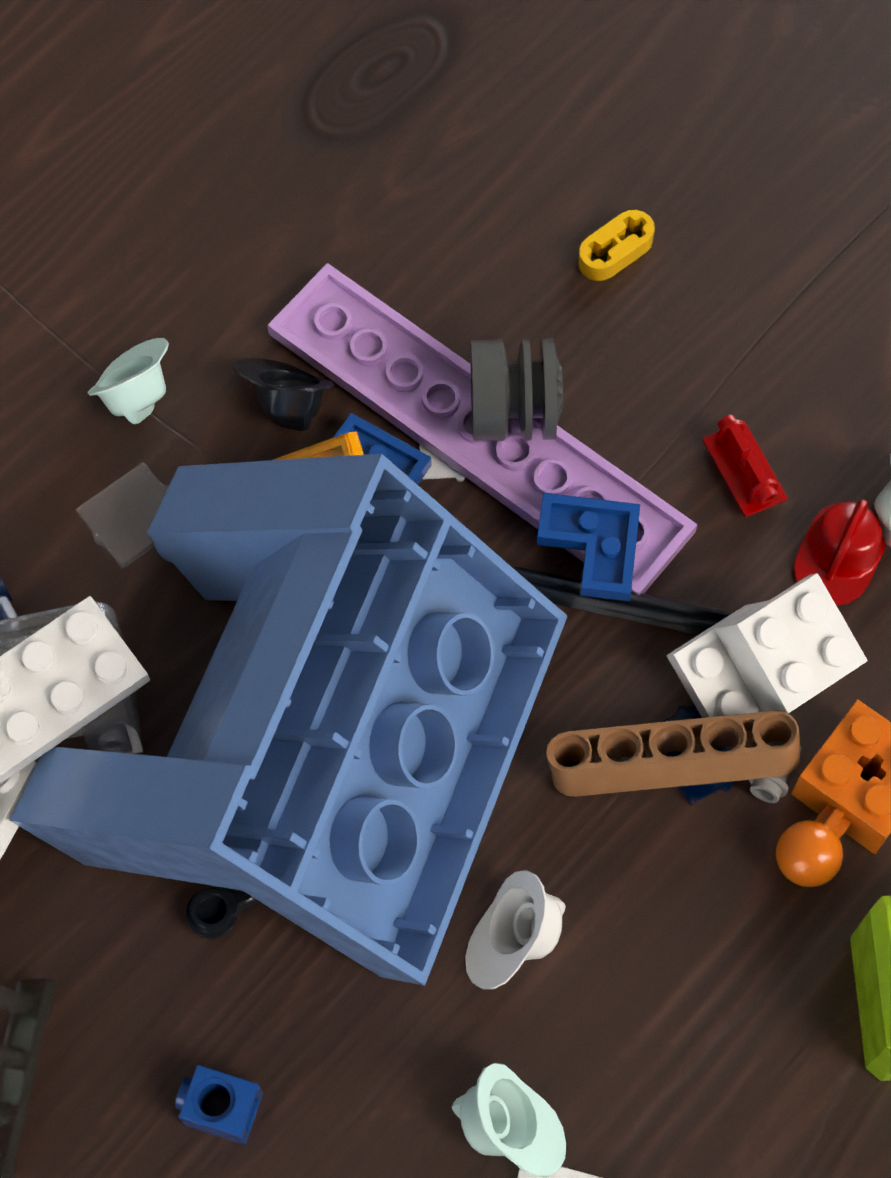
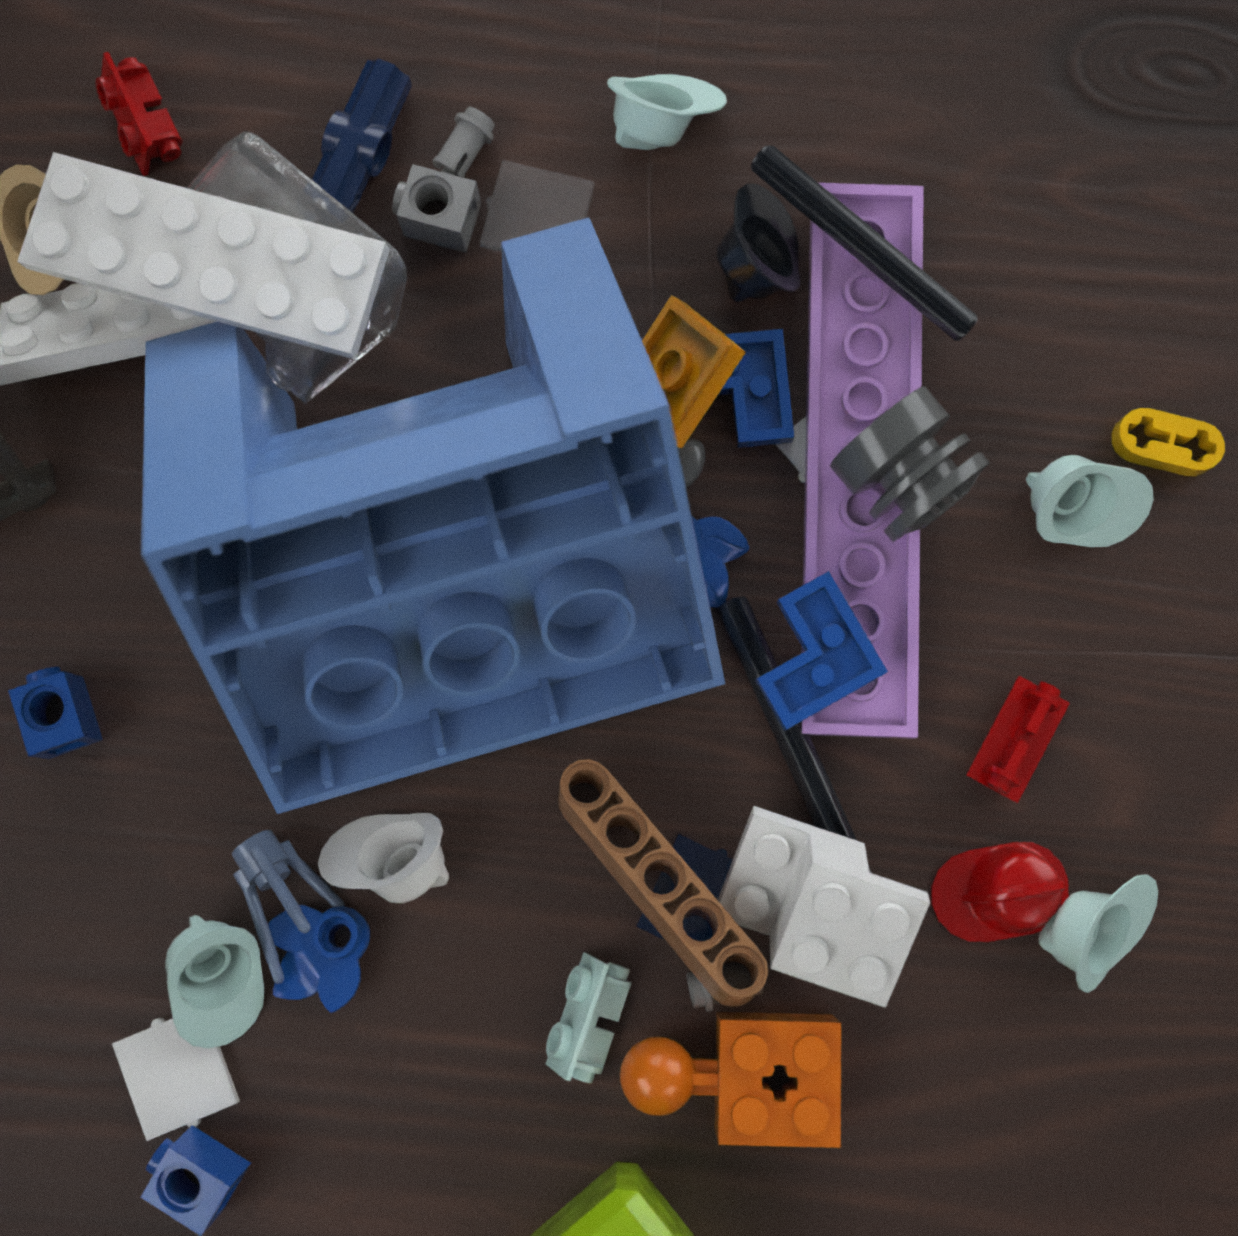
camera: 55 degrees right, 15 degrees up
(43, 523) = (464, 142): none -> light grey pin
(74, 552) = (448, 228): none -> light grey brick
(335, 321) = (863, 243): none -> black axle
(454, 1025) = (264, 864): none -> sand blue plant
(548, 1046) = (315, 961): none -> blue plate
(619, 314) = (1088, 501): none -> light aqua piece
(718, 862) = (576, 1044): none -> light aqua hinge

